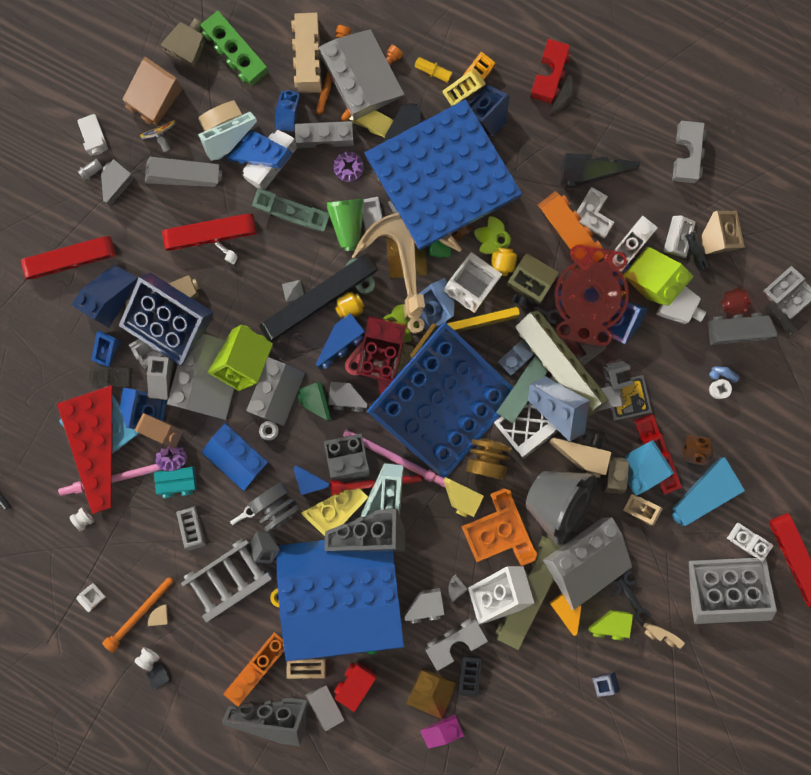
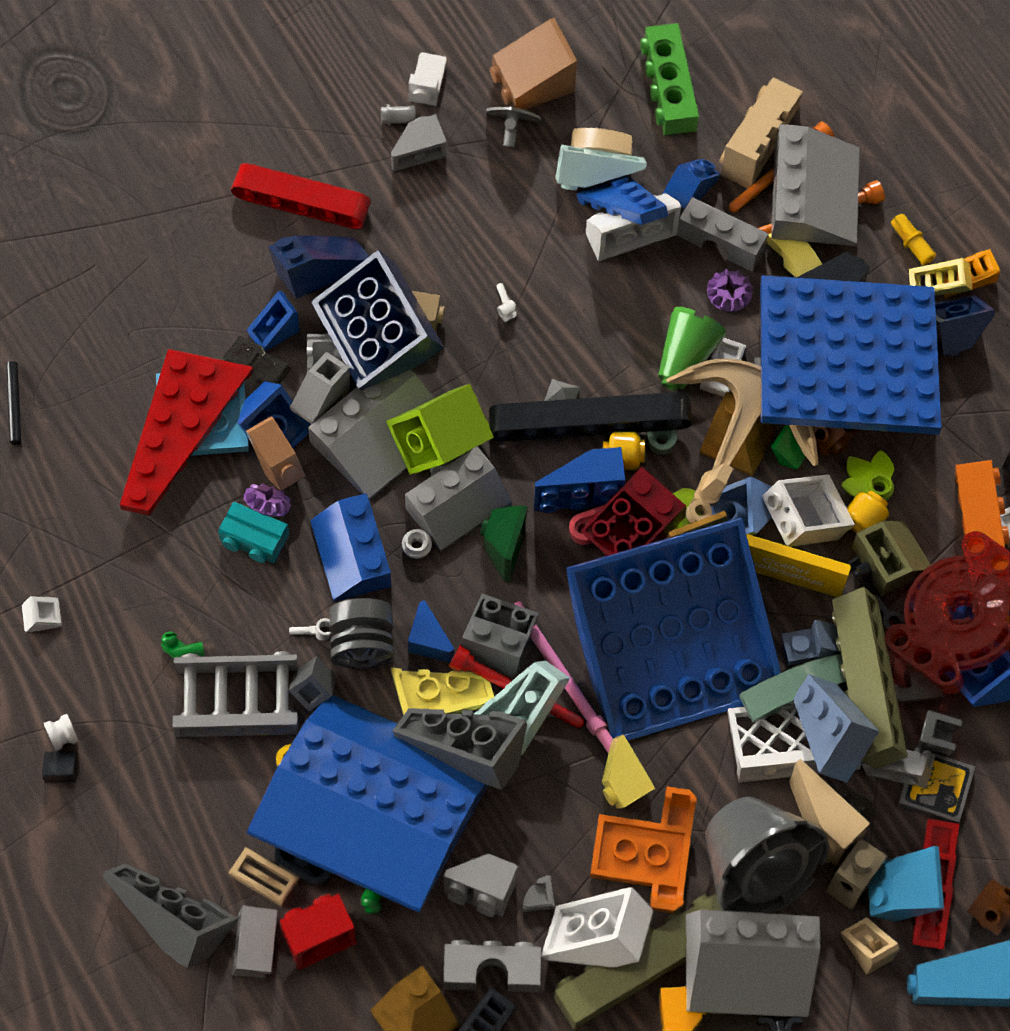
camera: 30 degrees right, 20 degrees down
(77, 487) = (122, 468): bright pink bar -> none
(81, 519) = (100, 508): white wheel -> none
(112, 643) = (31, 685): orange piece -> none
(159, 616) = (114, 690): tan tile -> none
(179, 572) = (176, 648): none -> green arm
(181, 172) = (510, 176): light grey slope -> none
(185, 42) = (612, 40): dark tan torso -> none
(199, 533) = (226, 623): light grey slope -> none
(209, 232) = (499, 265): red beam -> none
(255, 670) = (194, 835): orange slope -> none
(290, 211) = (618, 297): sand green slope -> none
(344, 395) = (546, 557): light grey slope -> none
(488, 459) = (691, 744): pearl gold wheel -> none

